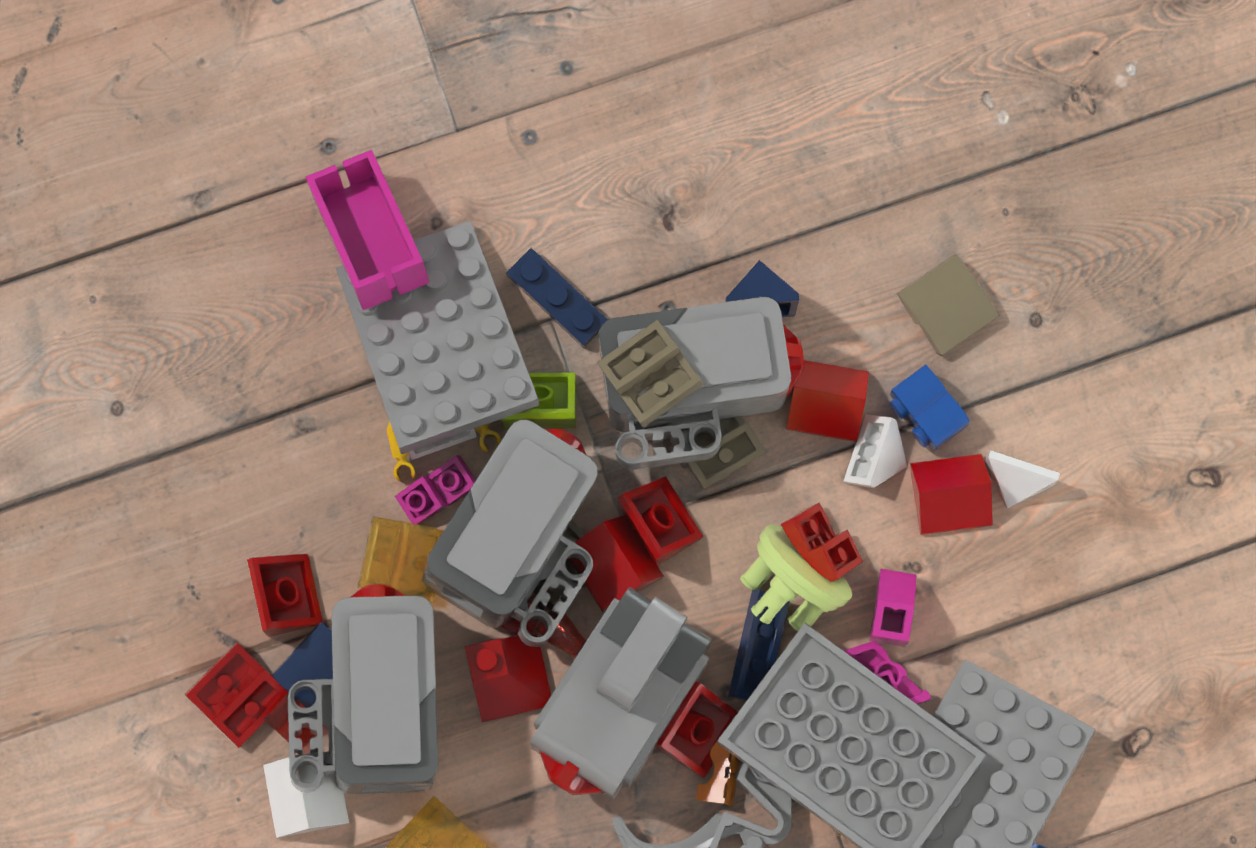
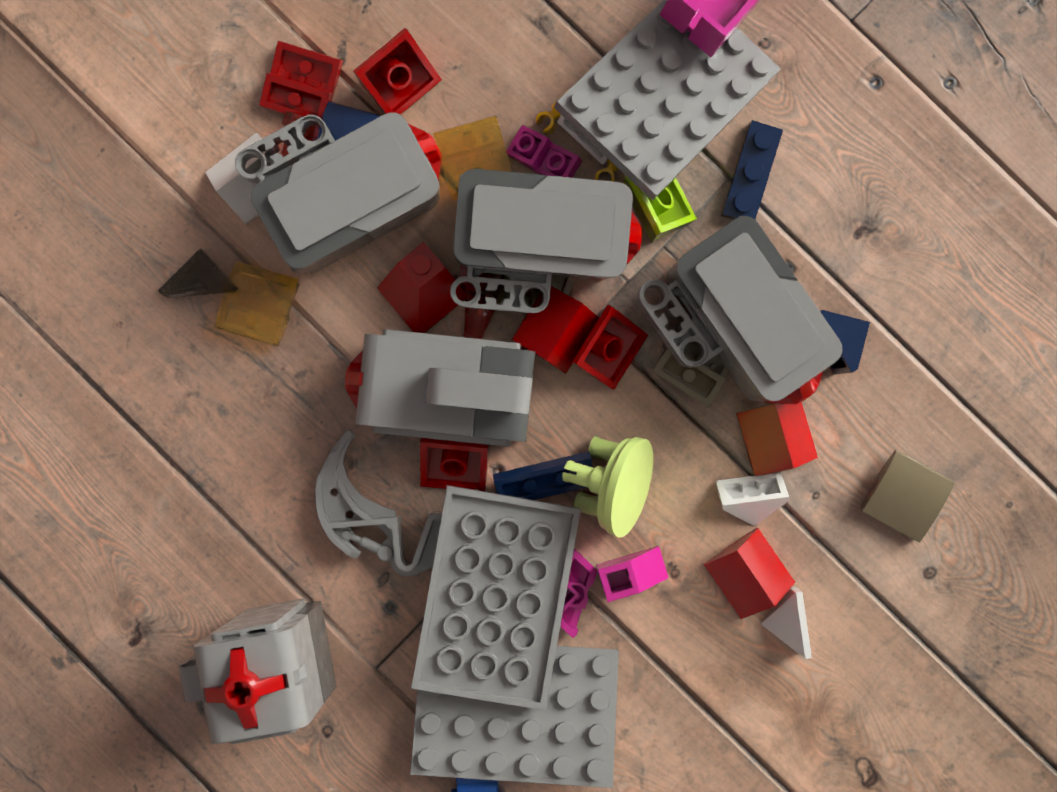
camera: 70 degrees right, 10 degrees up
(657, 363) = (736, 277): dark tan slope -> none
(715, 787) = (413, 499): orange piece -> none
(819, 546) = (650, 492): red slope -> none
(928, 408) = (812, 522): blue brick -> none

